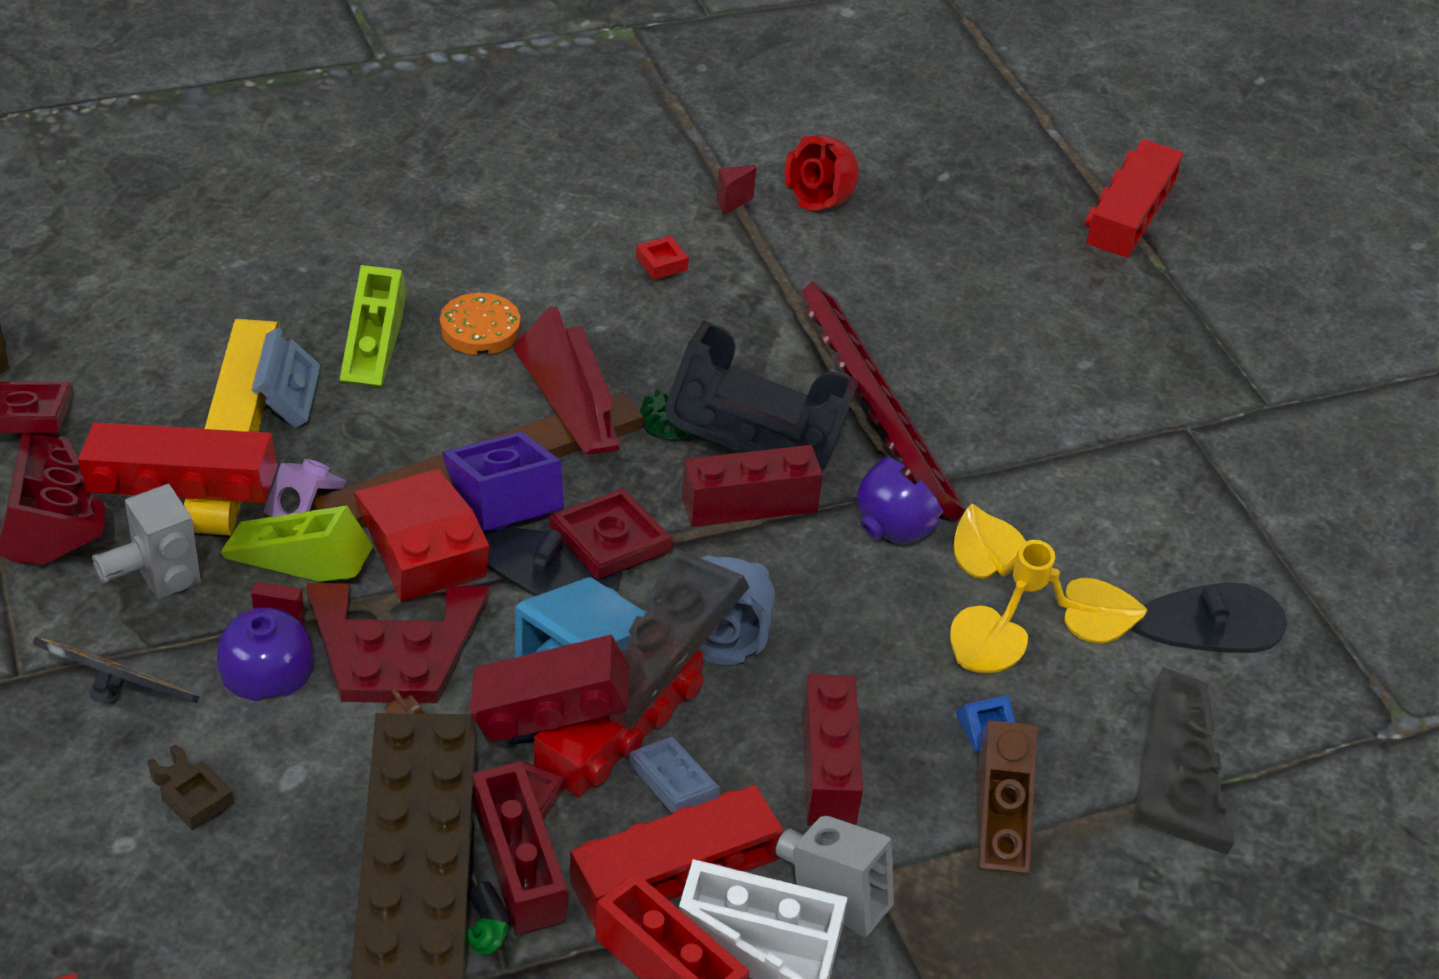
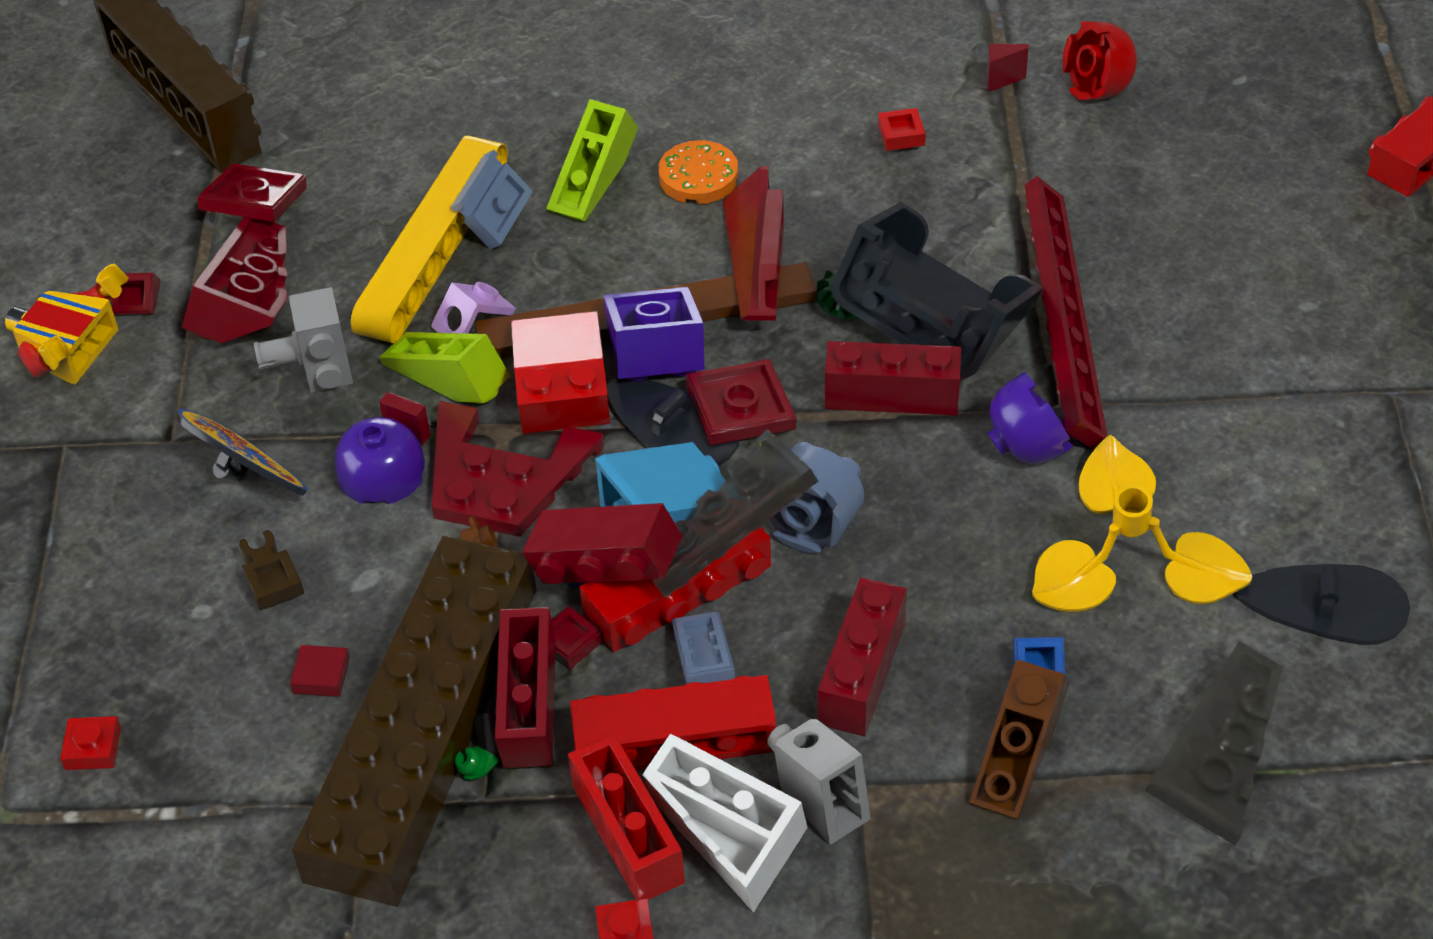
camera: 25 degrees right, 5 degrees up
(191, 460) = (357, 267): red brick -> none
(282, 878) = (320, 670): none -> dark red tile

